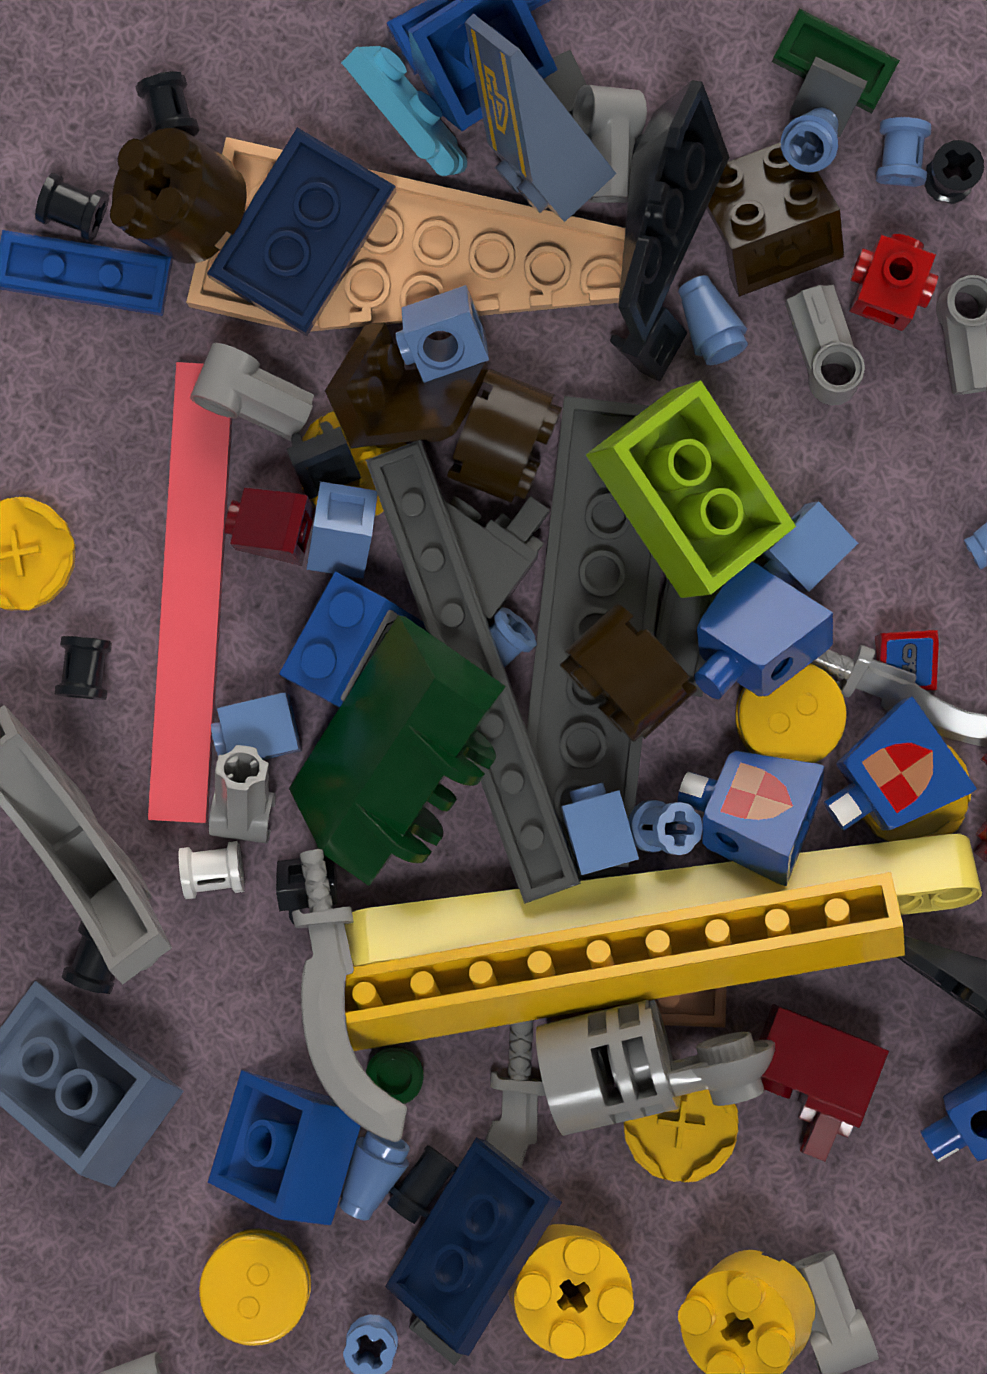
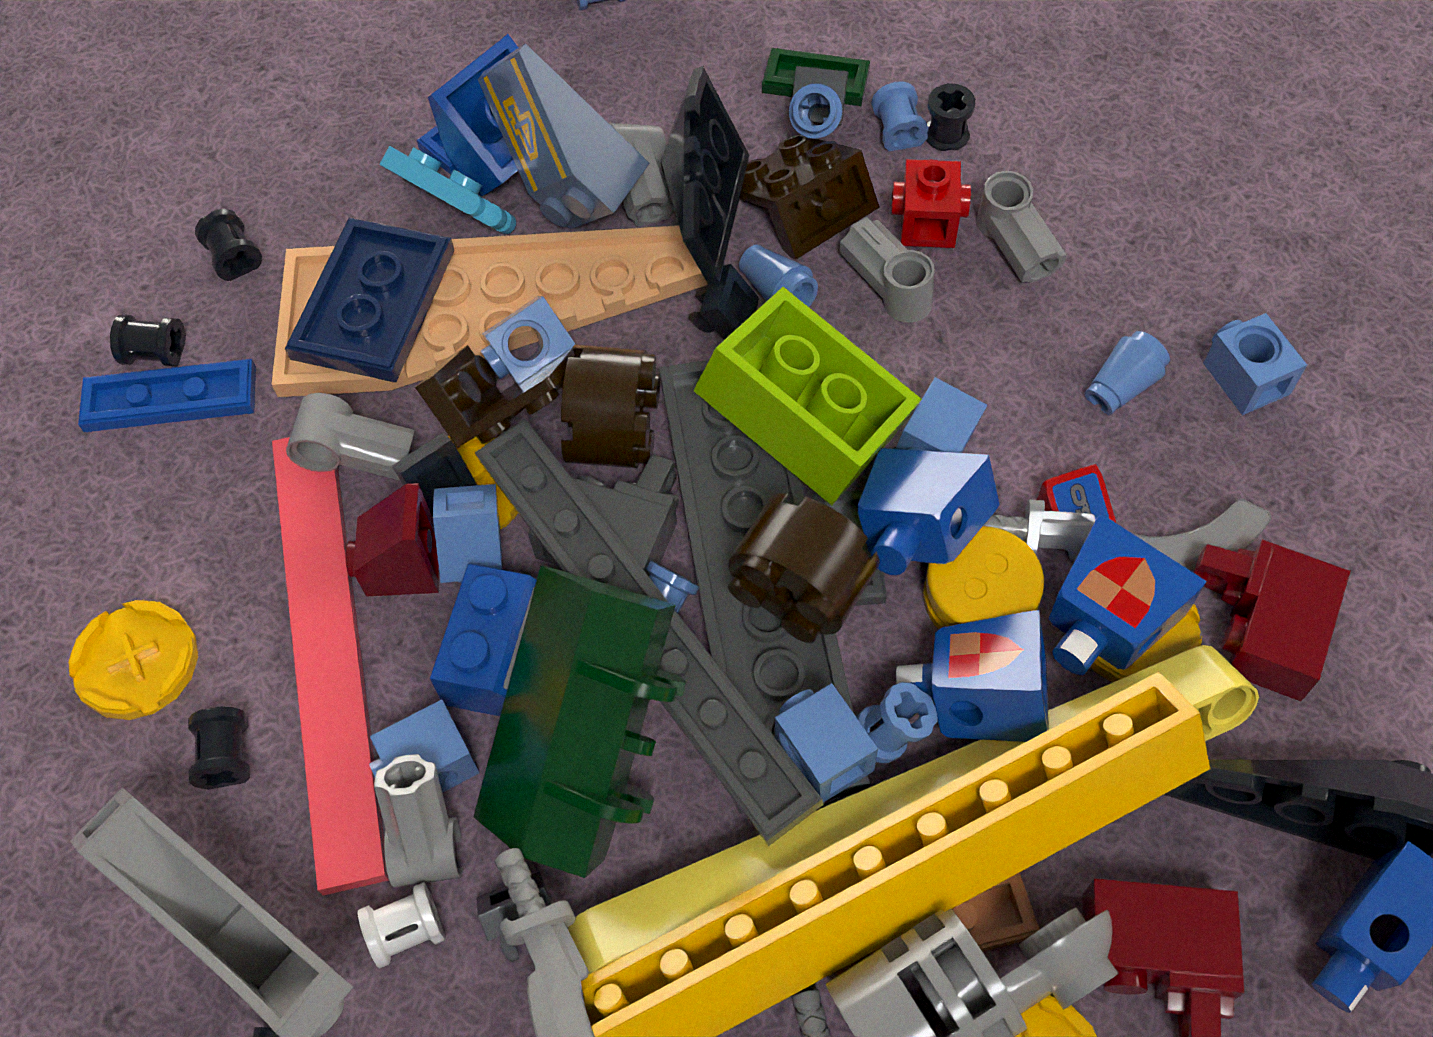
camera: 10 degrees left, 25 degrees down
(177, 195) = (243, 291): dark brown brick -> none

